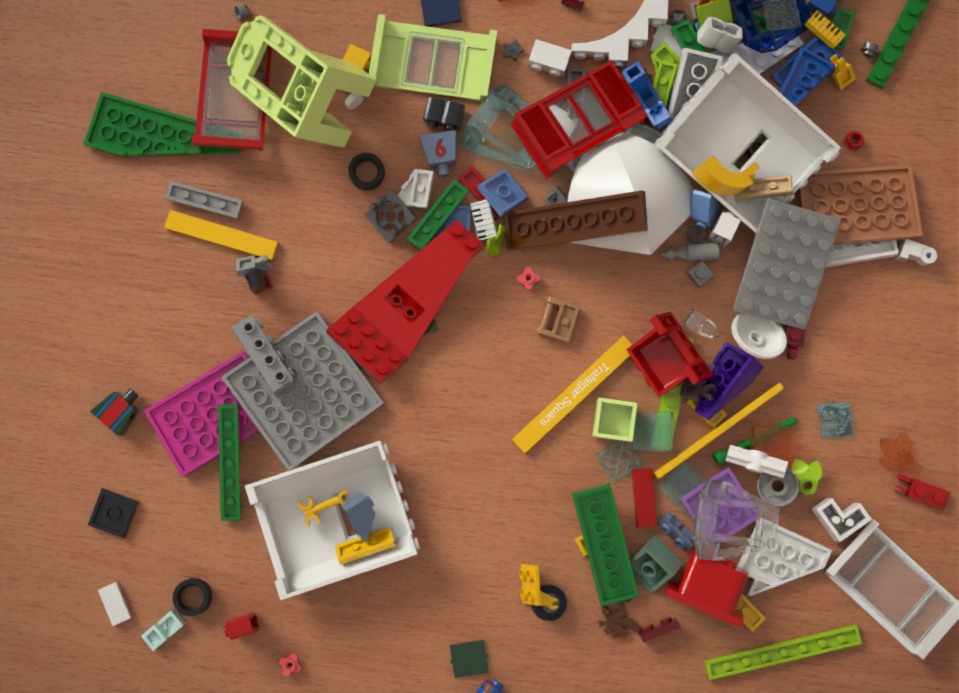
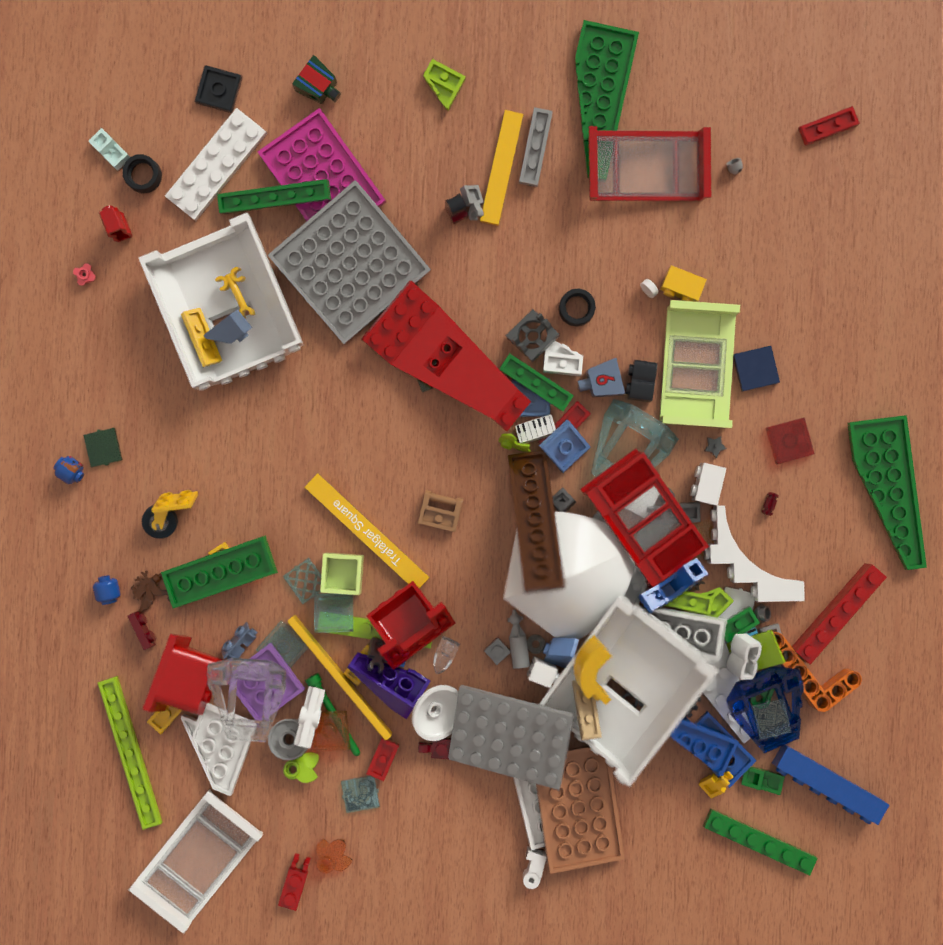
camera: 80 degrees right, 5 degrees up
(115, 603) = (131, 99): white tile -> none
(130, 285) = (444, 82): none -> lime wing
(190, 521) = (216, 164): none -> white plate
(263, 355) = (379, 219): light grey brick -> none
(310, 88) = (661, 245): yellowish green bracket -> none
(528, 273) = (480, 483): coral plate -> none
(615, 663) = (106, 590): none -> blue head
(644, 497) = (269, 608): red tile -> none
(654, 564) = (204, 622): sand green slope -> none
(802, 394) = (382, 759): none -> red plate
(825, 29) = (758, 764): yellow tile -> none
(840, 523) = (256, 803): white brick -> none
(857, 136) = (646, 805): red plate -> none
(869, 49) = (742, 811): flat silver plate -> none

